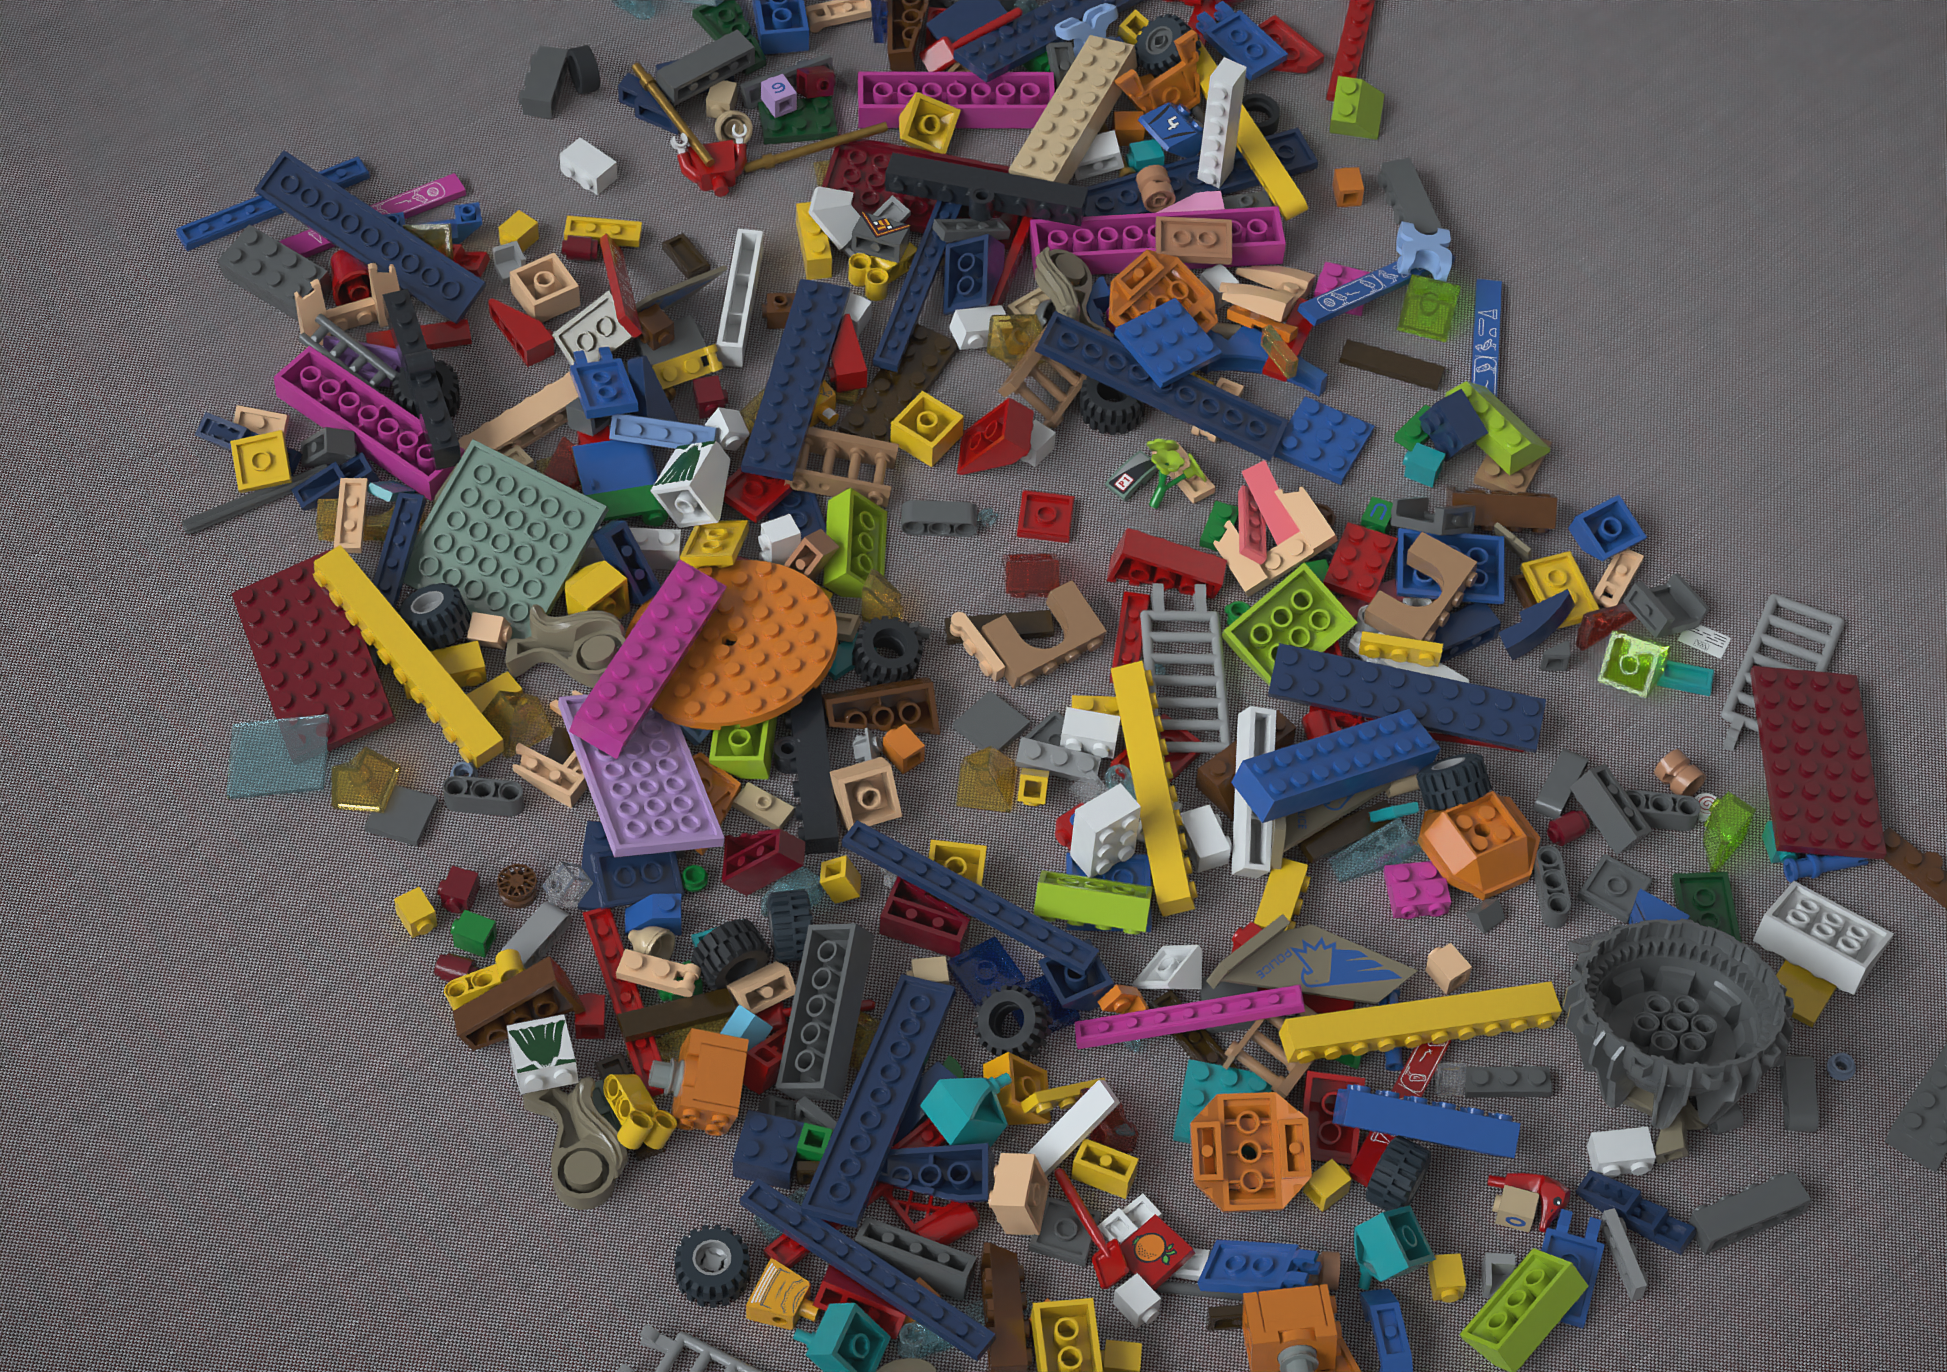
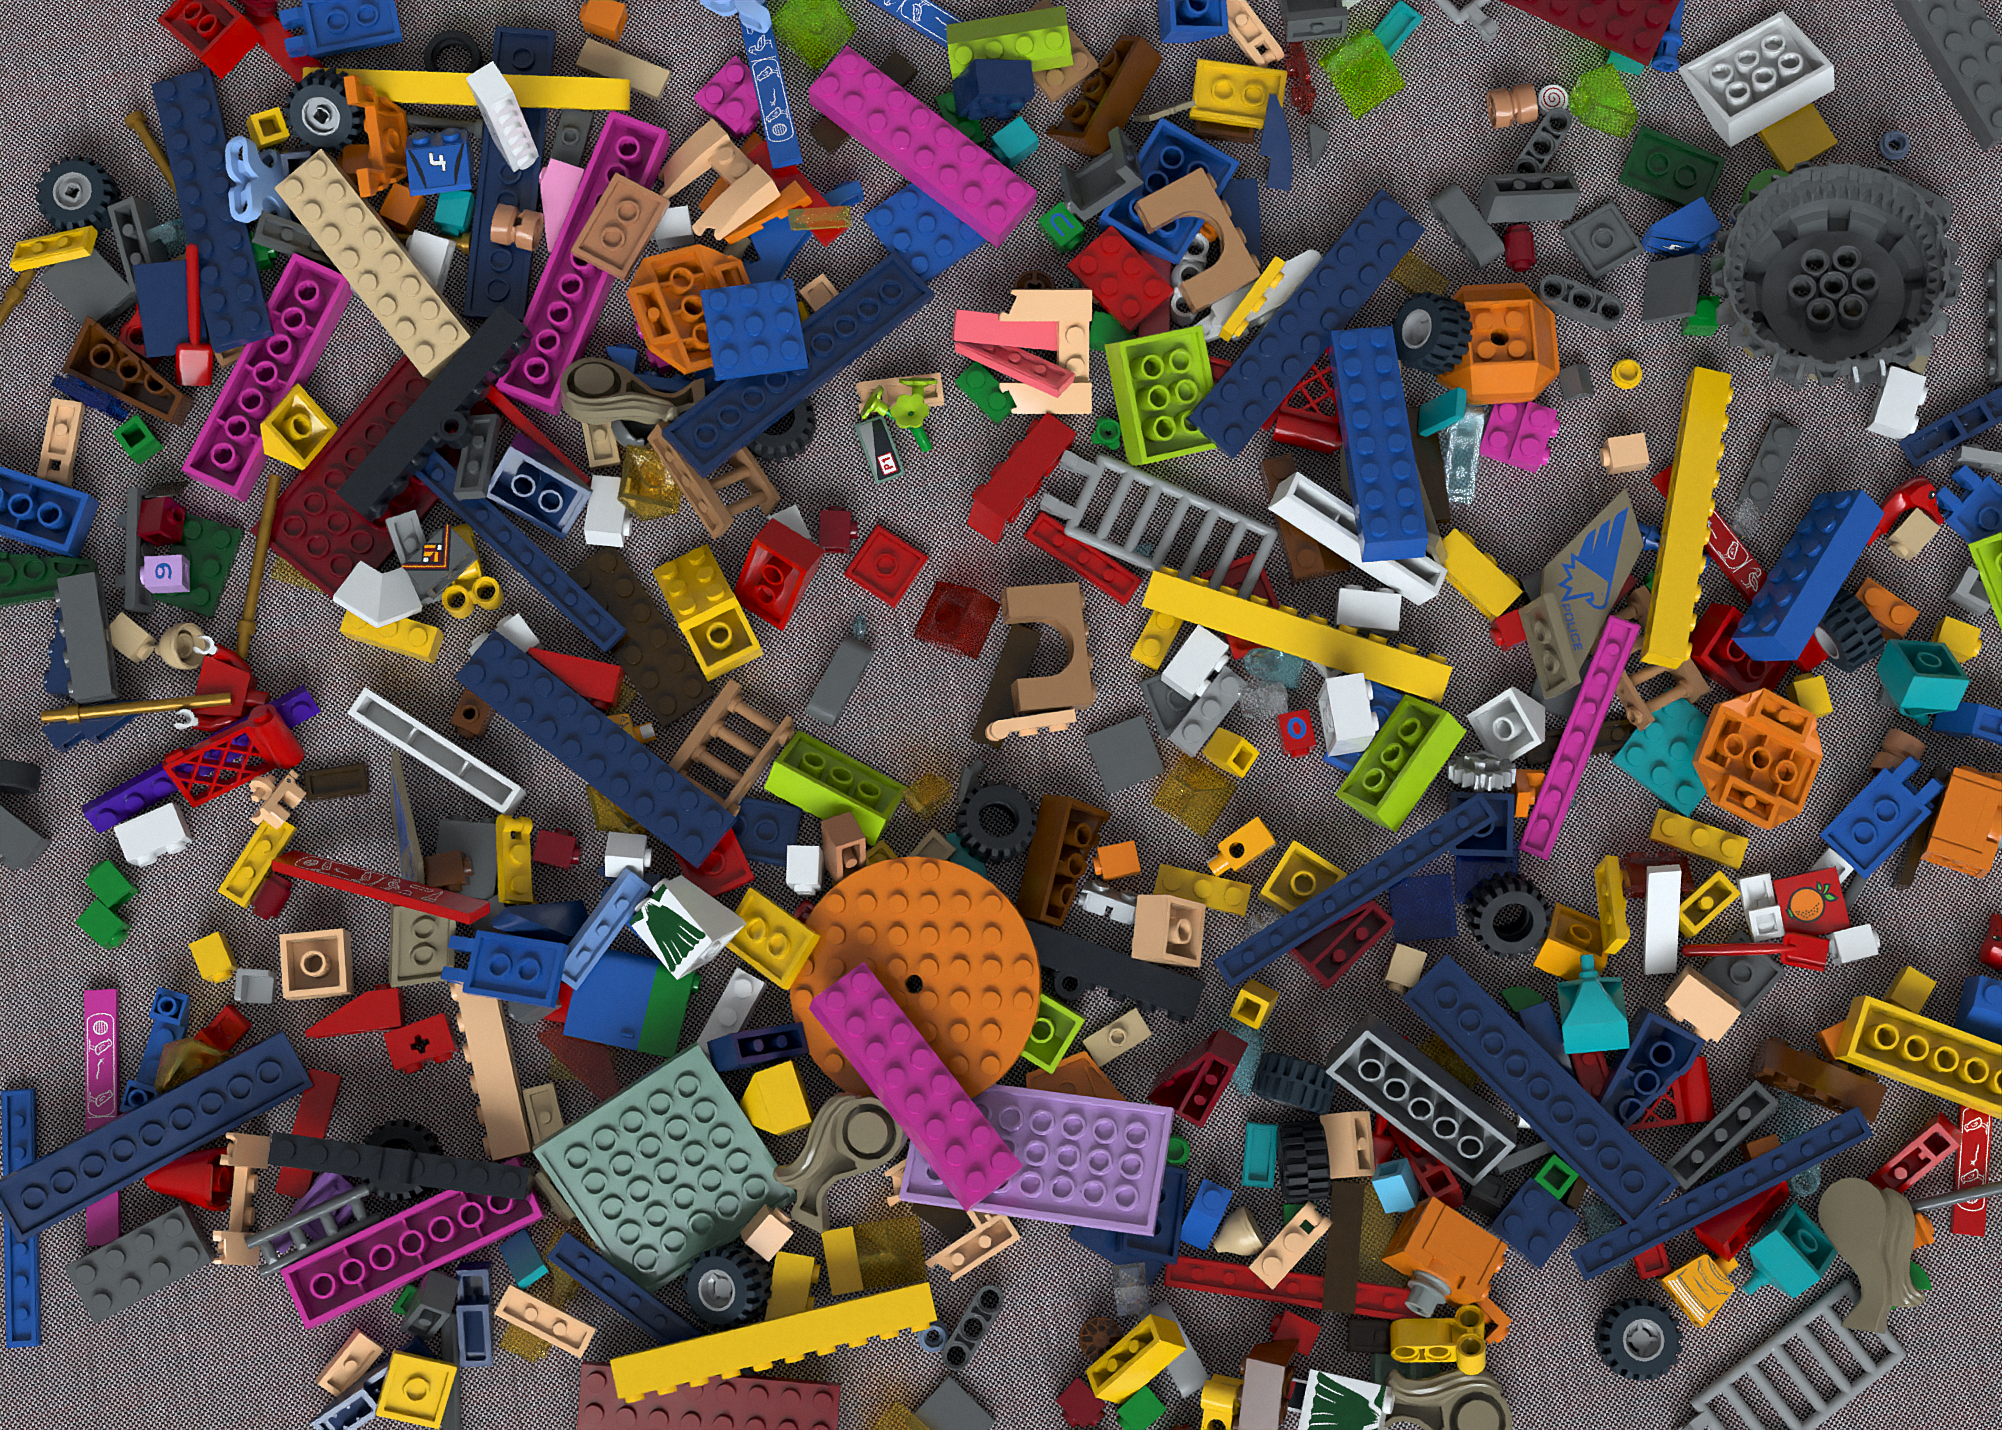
camera: 60 degrees left, 25 degrees up
(507, 164) = (104, 925): none -> green brick
(513, 900) = (1136, 1359): none -> yellow brick
(519, 372) = (403, 1042): none -> red brick
(538, 157) = (111, 884): none -> green brick
(653, 214) = (285, 790): none -> light nougat hips
(661, 172) = (155, 782): none -> dark purple plate
(676, 1153) = (1494, 1314): none -> orange bracket
(696, 191) = (265, 731): none -> red piece
(865, 47) = (138, 439): none -> green brick
(915, 818) = (1213, 891): none -> yellow plate
(954, 395) = (695, 587): none -> yellow plate
(964, 822) = (1256, 842): none -> light orange torso
(1052, 470) = (837, 530): none -> dark red brick
(1120, 959) = (1481, 771): none -> light grey gear
(1160, 1153) = (1698, 839): none -> yellow plate
(1318, 215) = (612, 63): none -> tan tile
(1379, 404) = (922, 146): none -> dark pink brick
(1436, 1206) = (1889, 611): none -> orange brick
(1500, 768) = (1418, 276): none -> clear yellow tile
(1516, 946) = (1626, 374): none -> yellow plate

